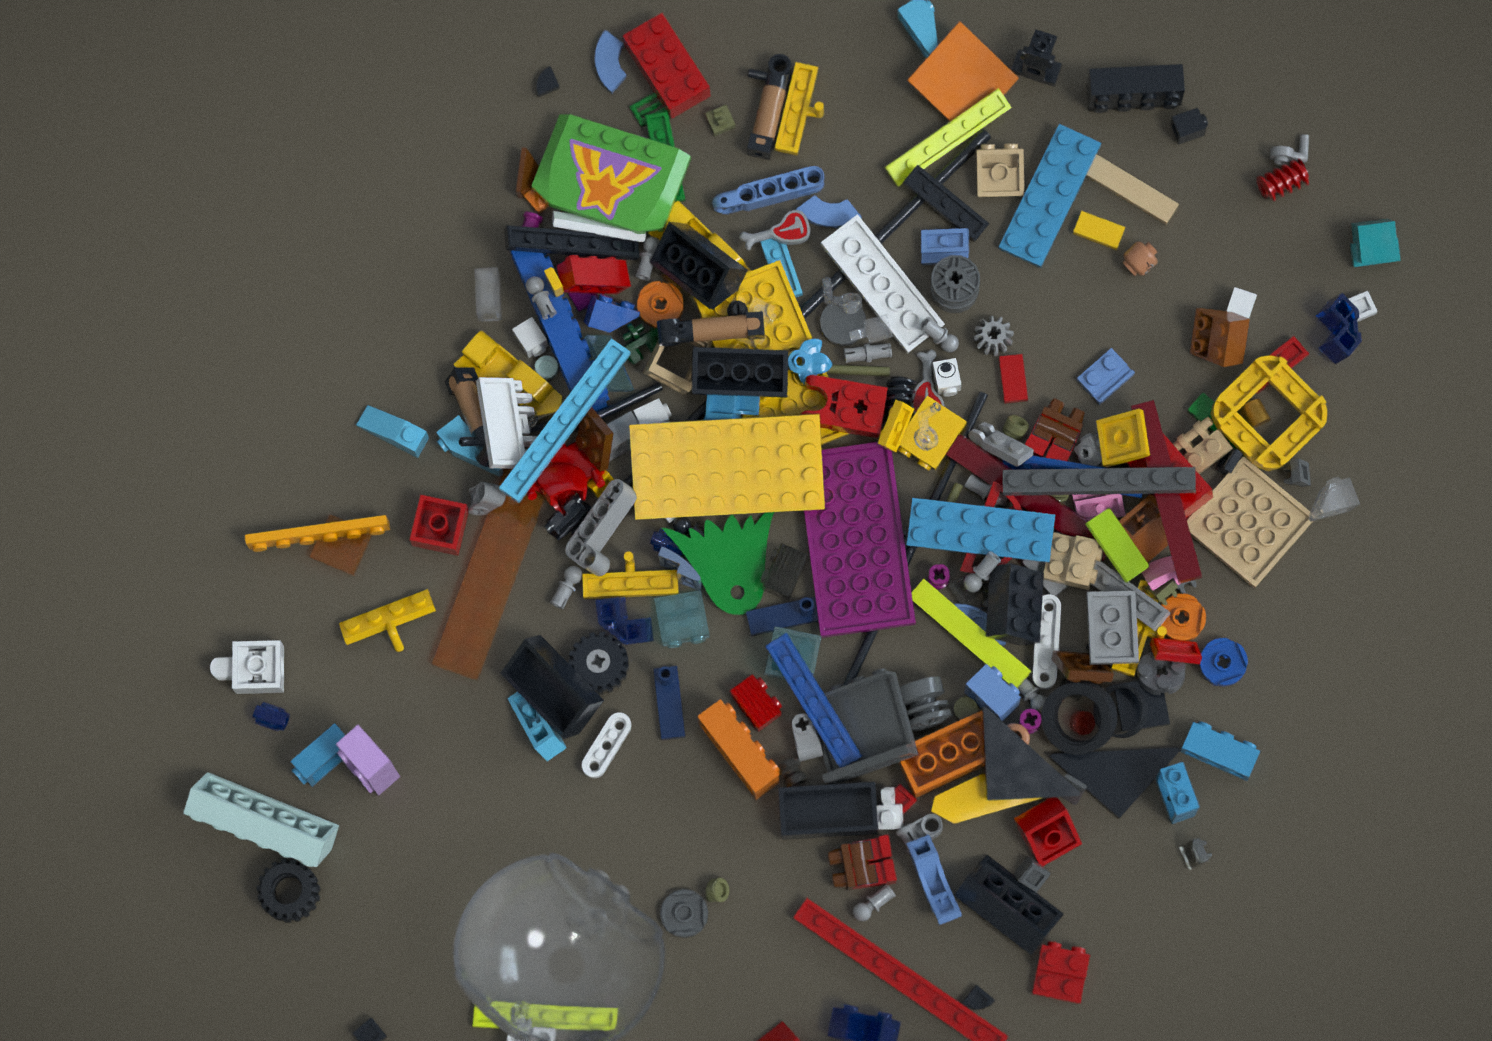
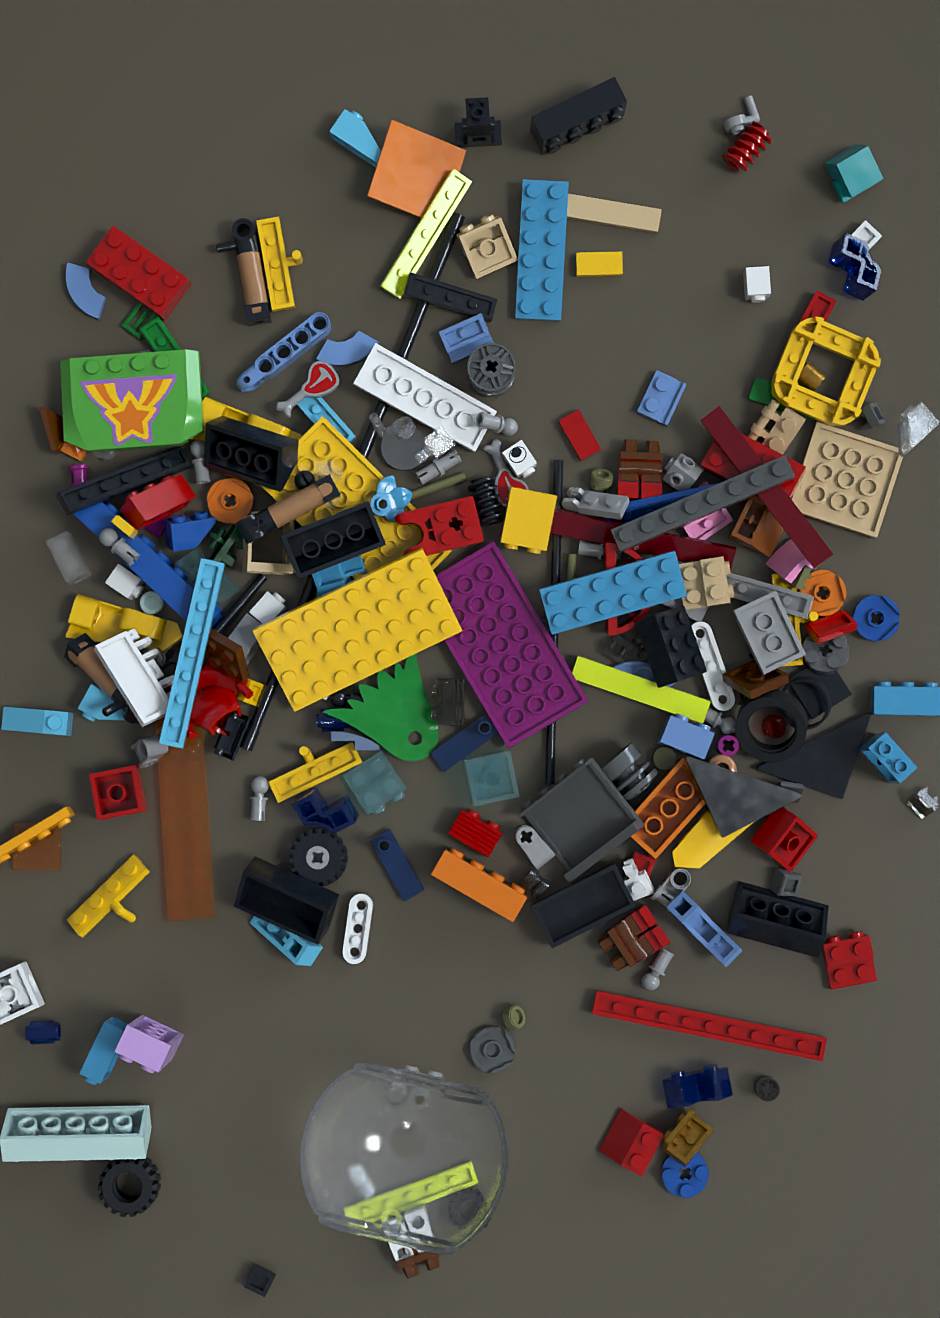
camera: 25 degrees left, 10 degrees up
(547, 82) = (35, 334): black tile -> none
(582, 224) = (127, 457): white tile -> none
(599, 526) = (264, 733): light grey beam -> none
(720, 120) = (210, 303): olive tile -> none
(813, 700) = (528, 813): blue tile -> none
(895, 426) = (495, 528): yellow plate -> none
(926, 436) = (527, 526): clear plate -> none
(938, 569) = (583, 650): magenta bush -> none
(974, 581) = (625, 642): light grey pin -> none
(978, 999) = (785, 1014): black tile -> none
(1002, 333) = (536, 403): light grey gear -> none
(1117, 545) = (740, 553): lime slope -> none
(1123, 438) = (706, 453): yellow plate -> none
(1140, 258) = (648, 275): nougat head -> none
(1189, 125) = (640, 131): black brick -> none
(1219, 336) = (751, 319): dark orange slope -> none
(1228, 461) = (807, 432): black tile -> none

